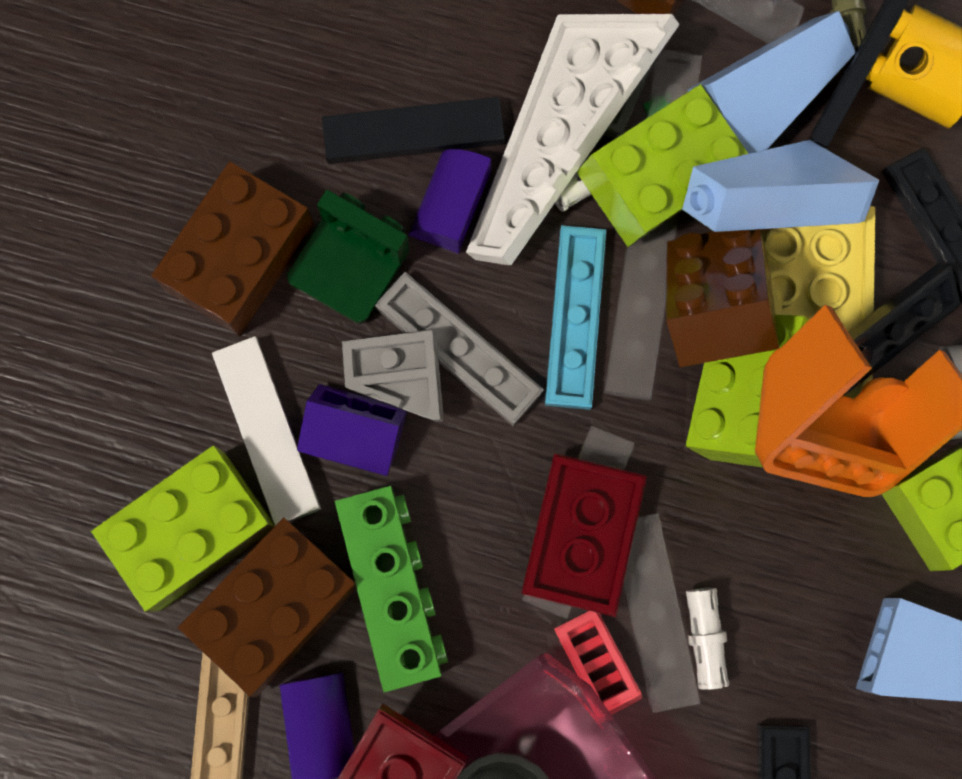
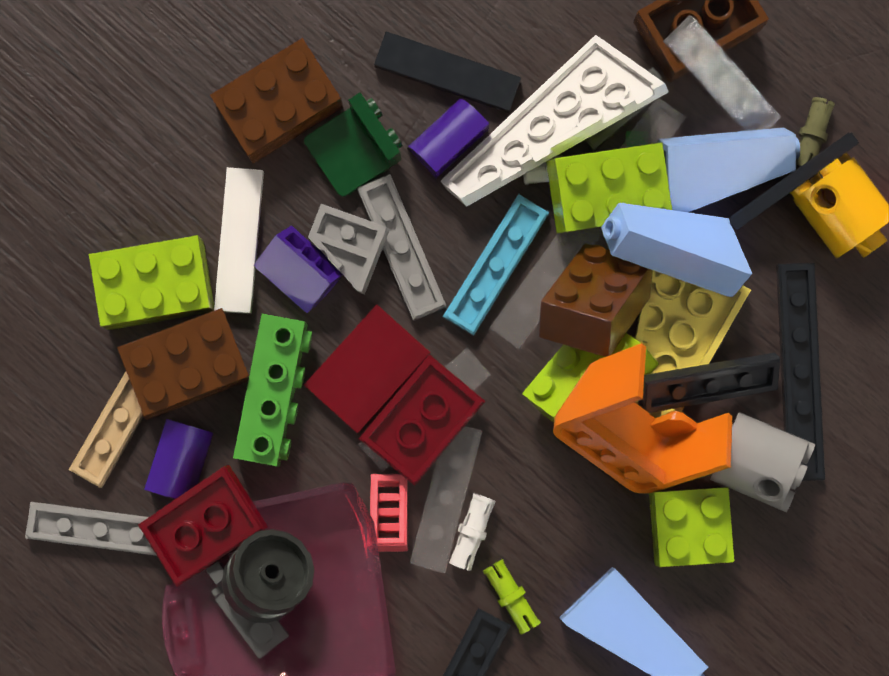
camera: 30 degrees right, 5 degrees up
(488, 507) = (367, 368): none -> dark red tile
(792, 692) = (511, 596): none -> lime pin

